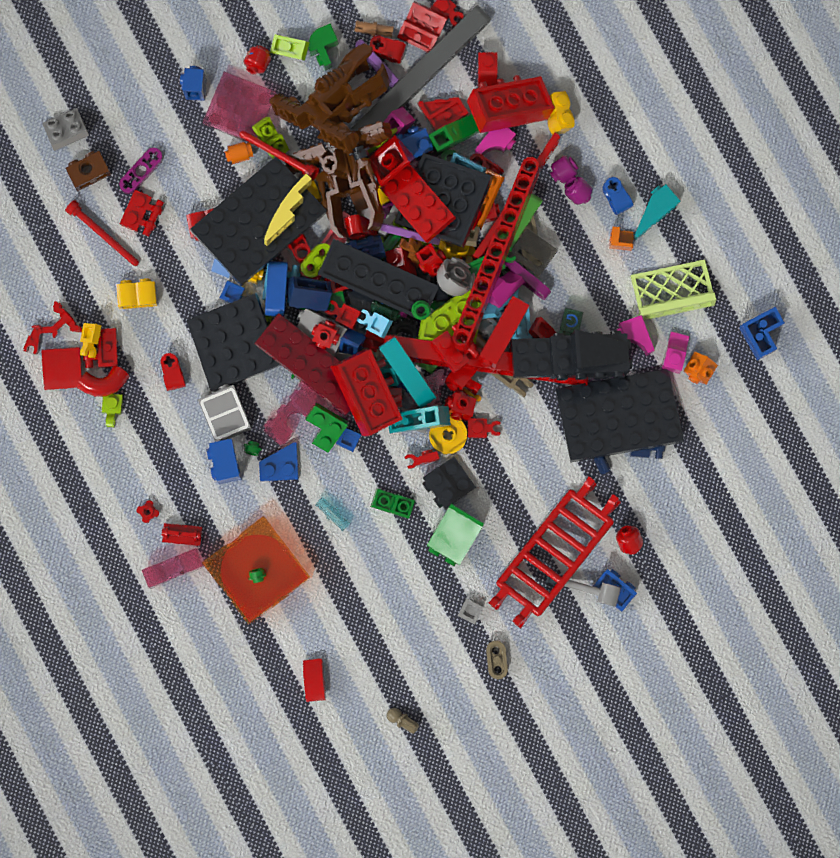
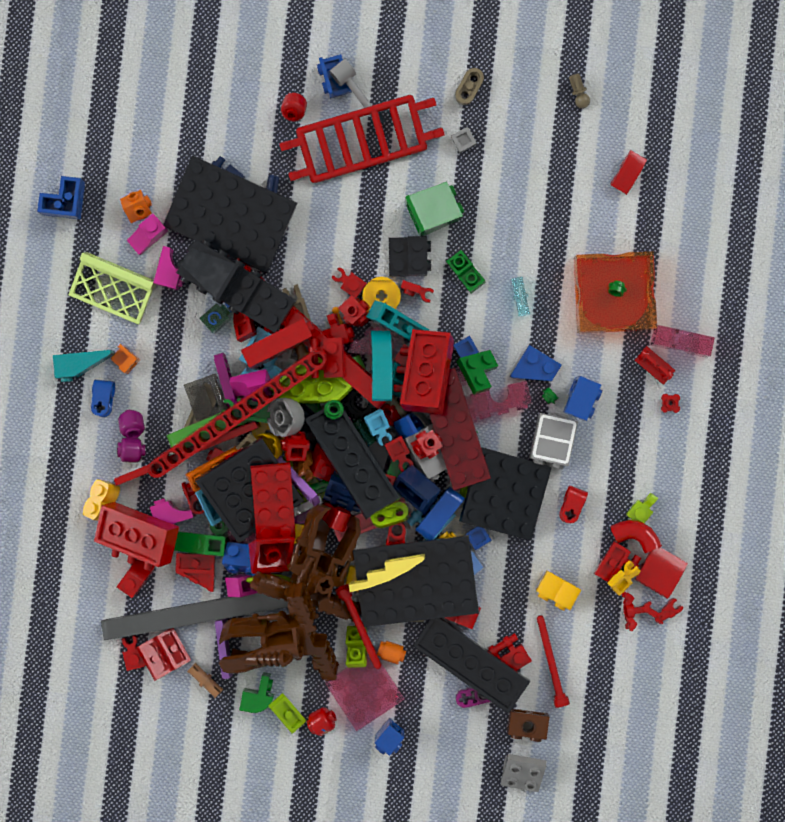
camera: 140 degrees left, 5 degrees up
(167, 187) = (471, 663): none -> black plate
(359, 152) = (292, 577): black plate -> none
(389, 49) = (205, 653): red piece -> none

